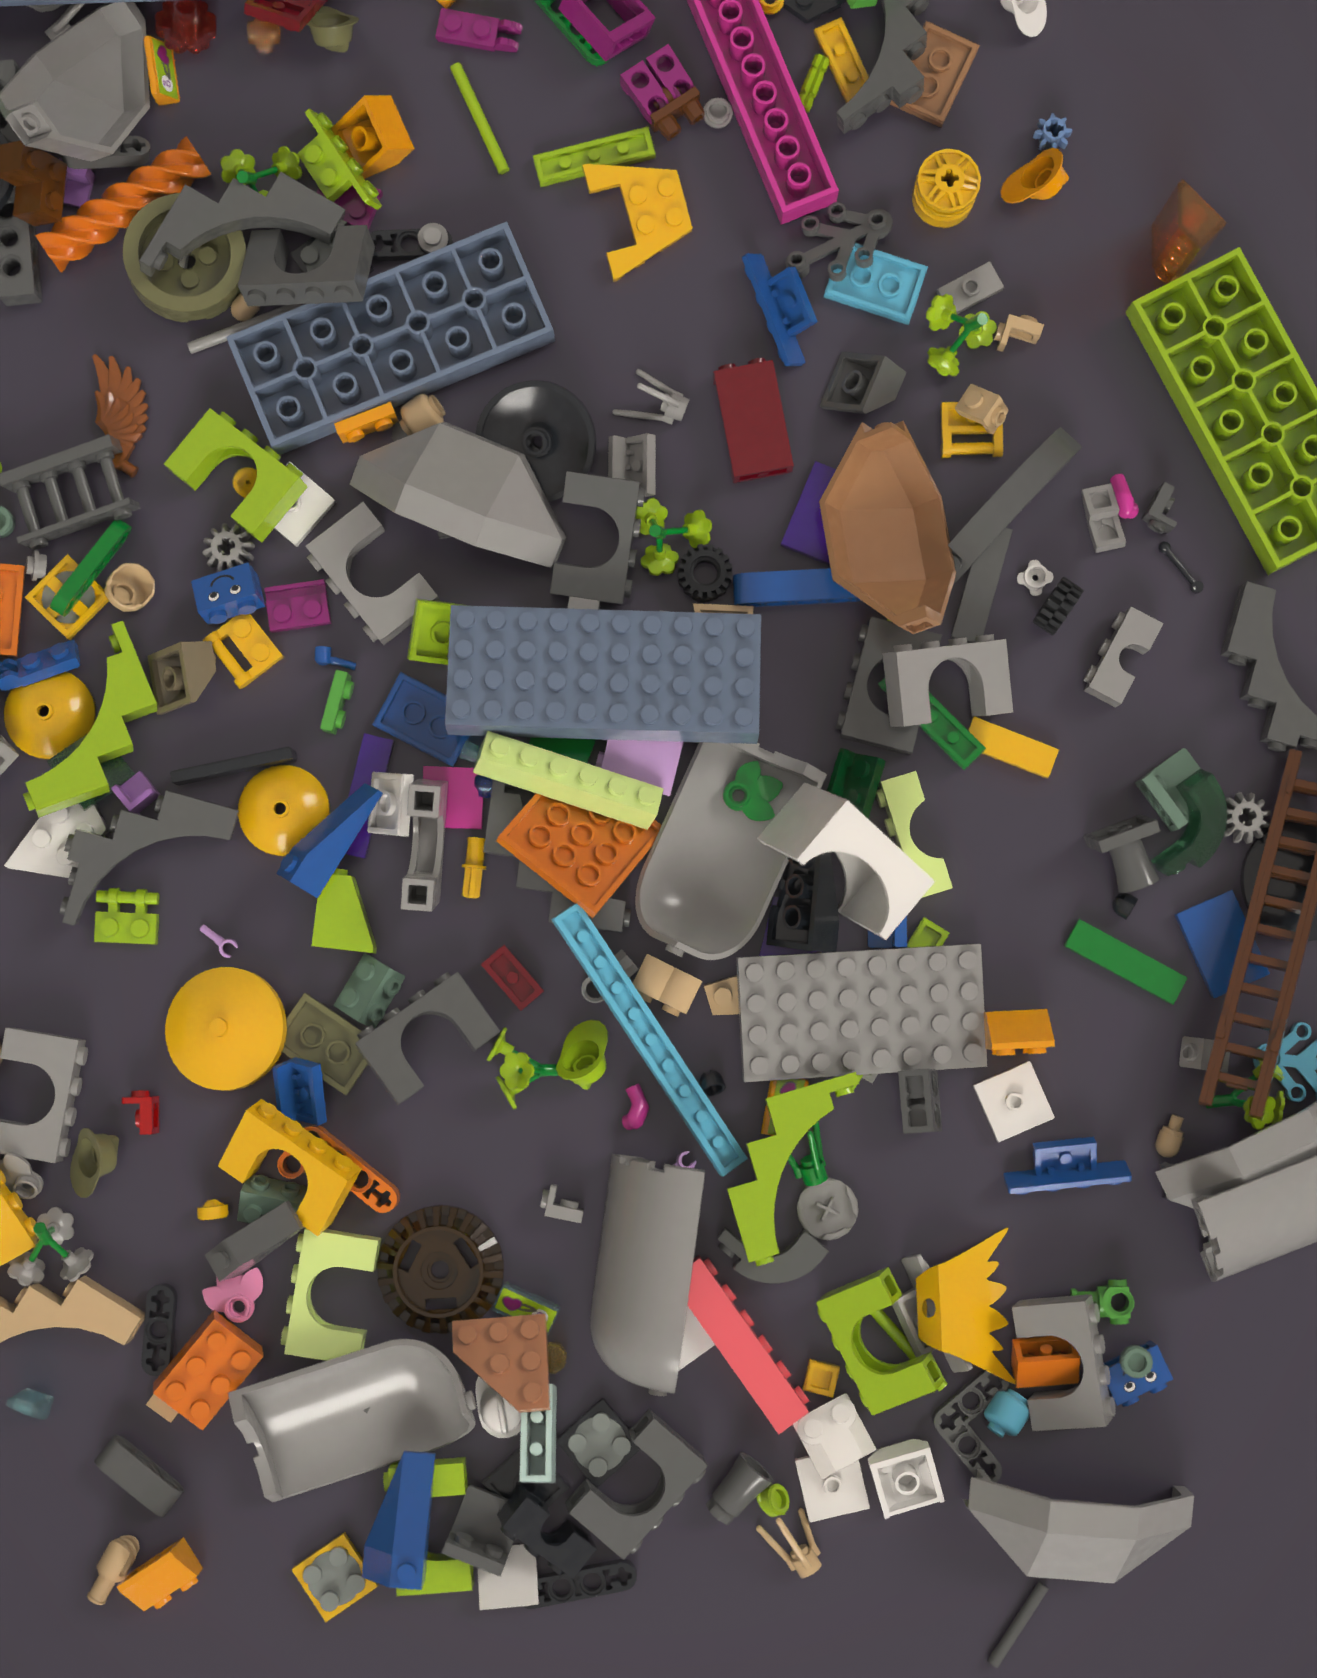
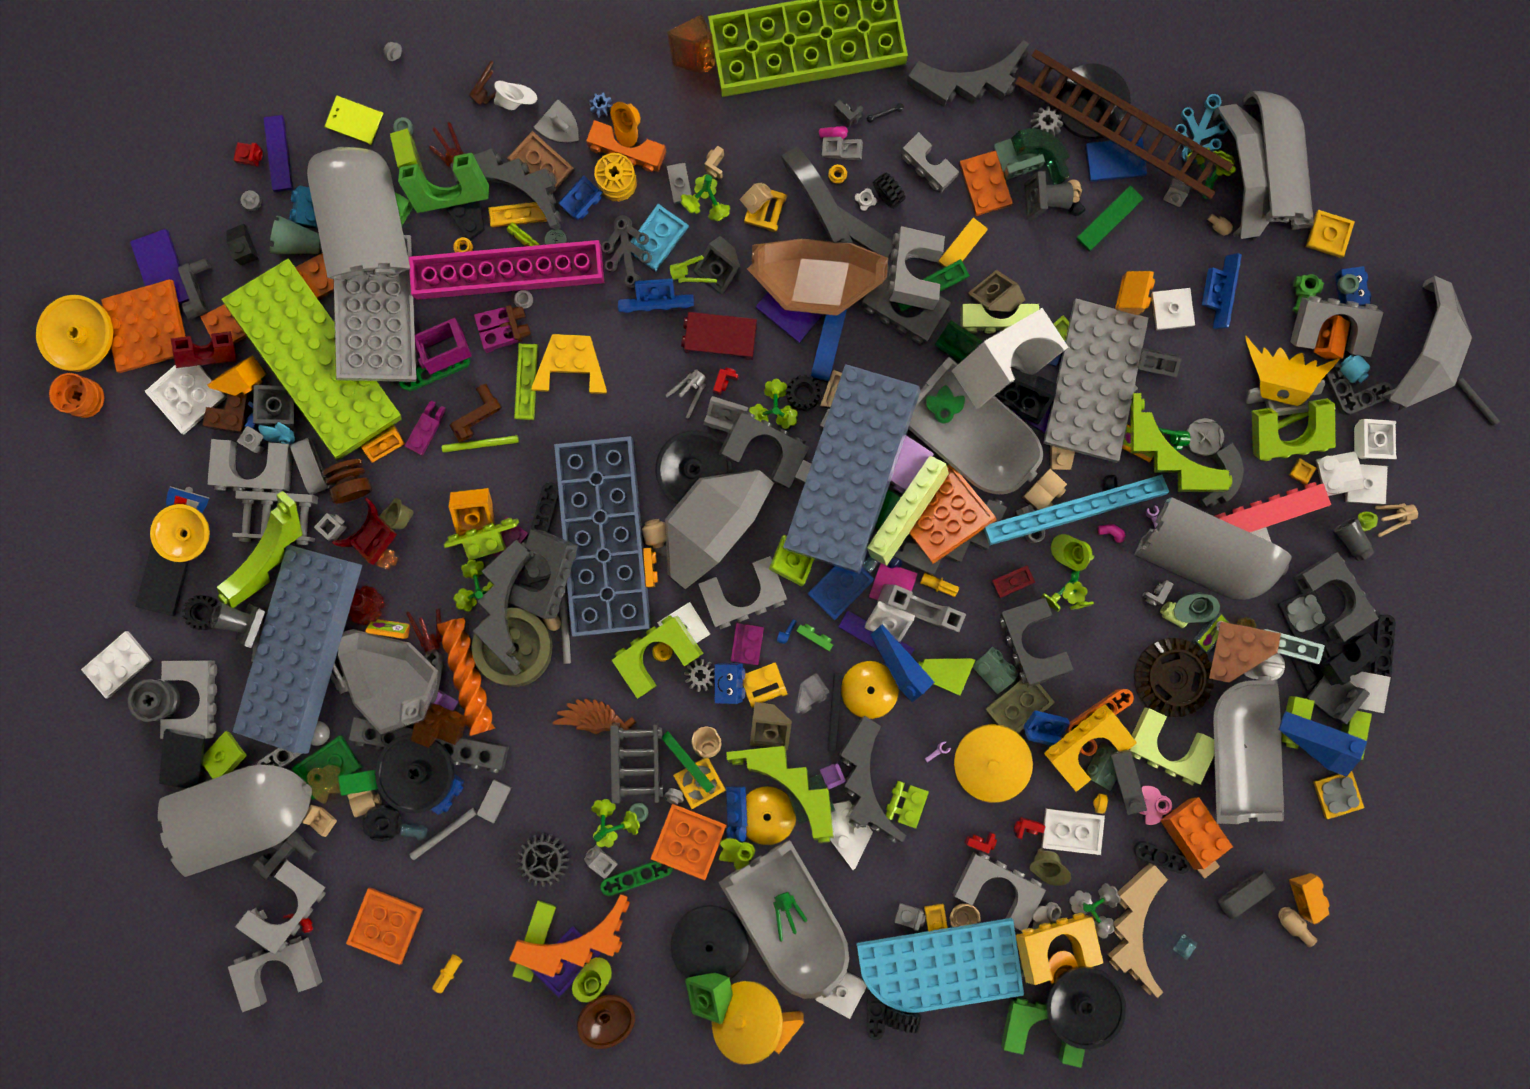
camera: 70 degrees left, 0 degrees up
(97, 1042) = (977, 842): none -> red bracket
(158, 1181) = (1073, 831): none -> white plate
(161, 137) = (429, 642): none -> clear red plant
(252, 719) = (809, 692): none -> clear slope
(432, 237) = (548, 493): light grey plate -> none
(496, 82) = (461, 426): none -> reddish brown beam
(536, 1240) = (1168, 613): none -> yellowish green cone
(554, 1270) = (1197, 608): none -> sand green piece
(680, 444) = (721, 382): none -> red bracket
(826, 131) = (555, 237): none -> sand green piece
(835, 331) = (679, 271): none -> lime plant
(897, 147) = (580, 198): none -> blue bracket
(950, 821) = (998, 293): none -> dark tan slope
(998, 227) = (647, 155): none -> orange arch
(1004, 82) = (558, 124): none -> light grey shield
(1069, 519) = (837, 168): none -> yellow plate
(1119, 753) = (985, 183): none -> orange plate
(1151, 894) = (1076, 189): none -> tan cylinder
(1210, 1313) = (1330, 234): none -> yellow plate

